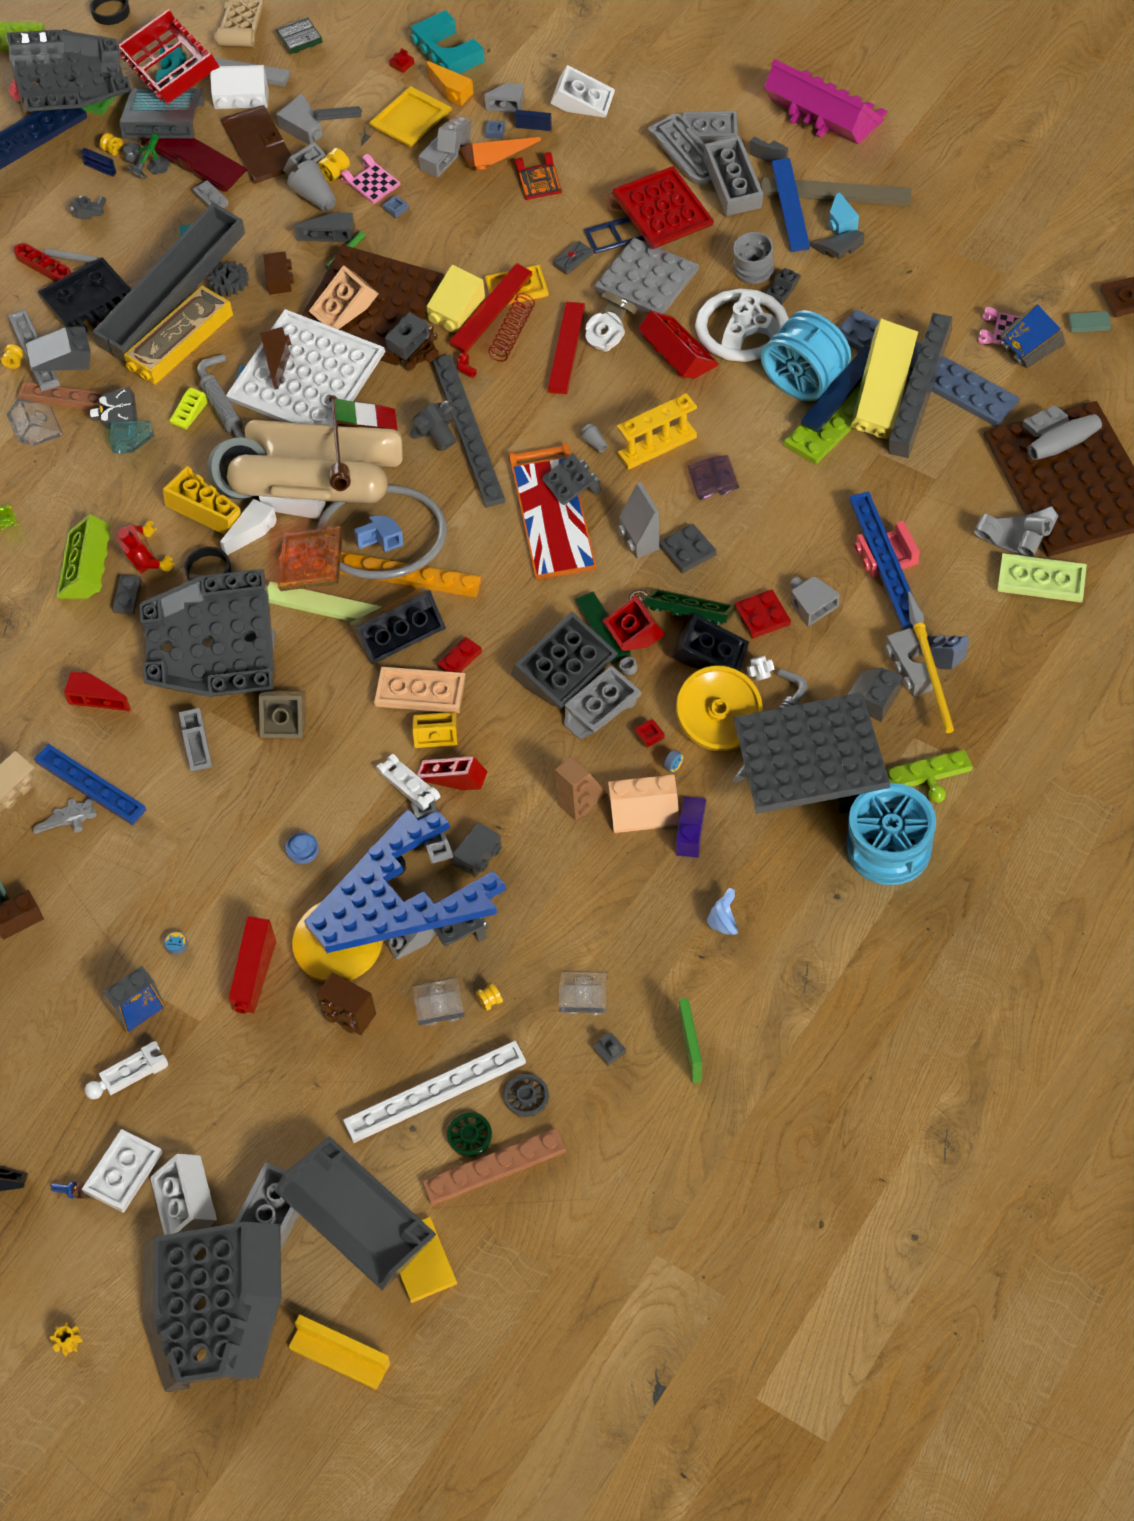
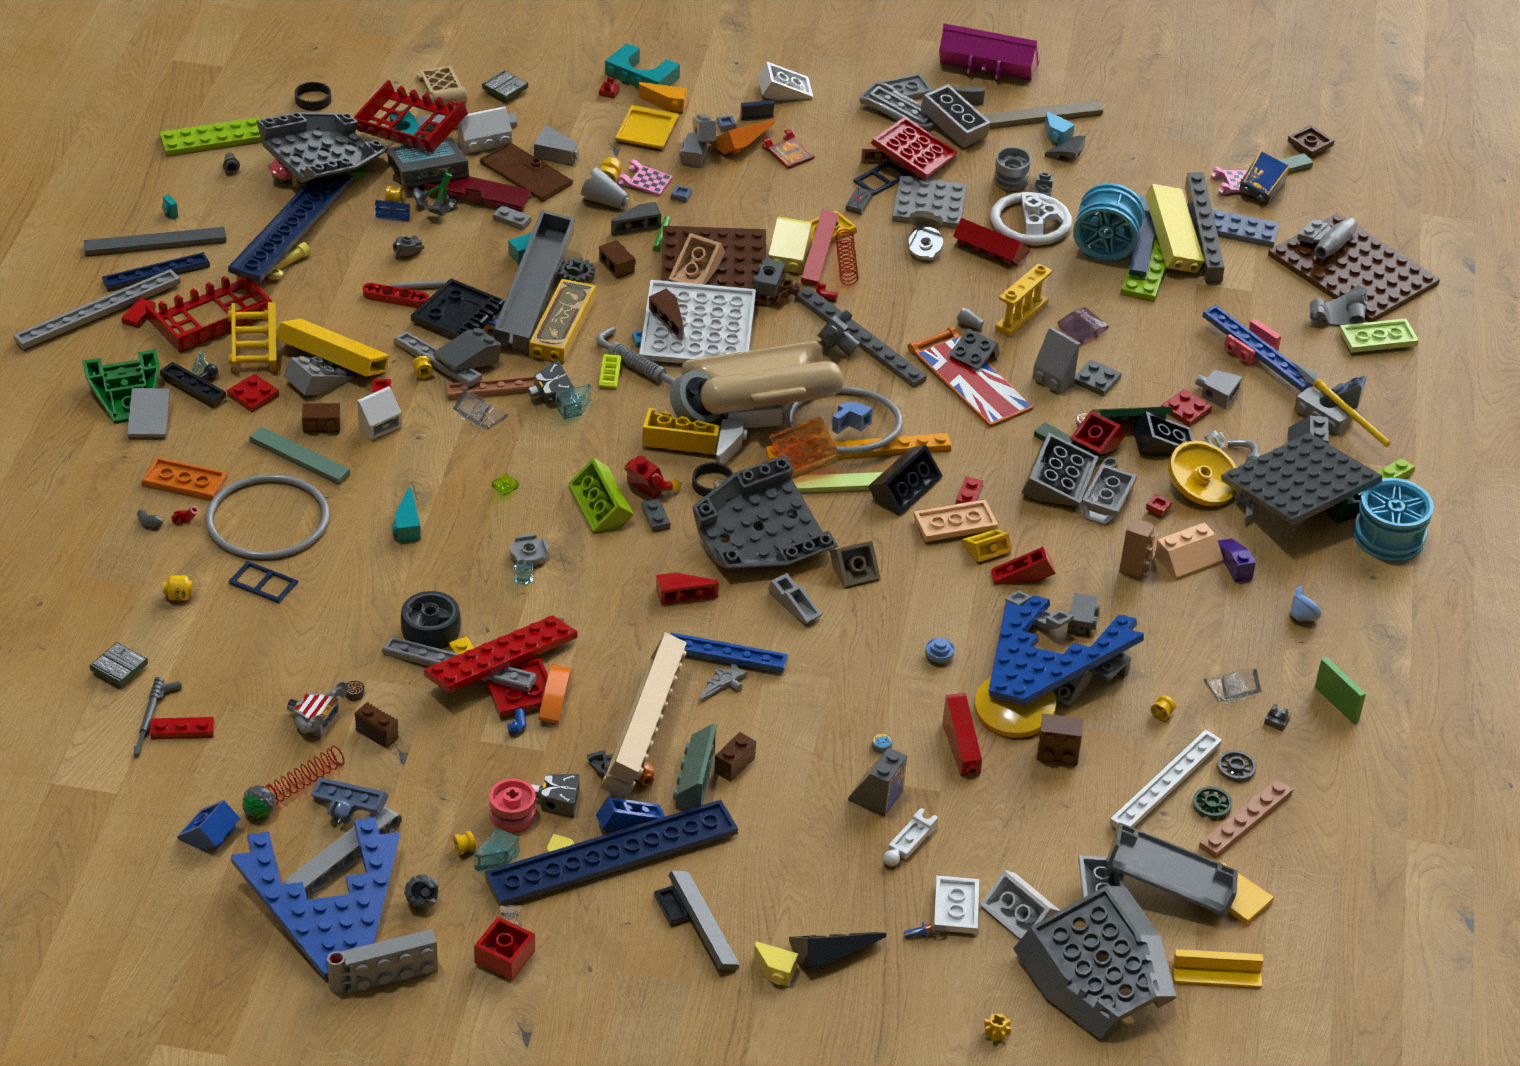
camera: 30 degrees left, 15 degrees down
(311, 152) = (581, 174): light grey slope -> none
(337, 113) = (586, 134): dark grey axle -> none
(360, 416) = (810, 369): flag -> none
(407, 782) = (993, 584): white plate -> none
(438, 1001) = (1127, 721): clear slope -> none
(505, 98) = (722, 98): light grey slope -> none
(566, 348) = (900, 263): red tile -> none
(673, 761) = (1191, 518): sand blue tile -> none
(790, 205) = (1011, 128): blue tile -> none

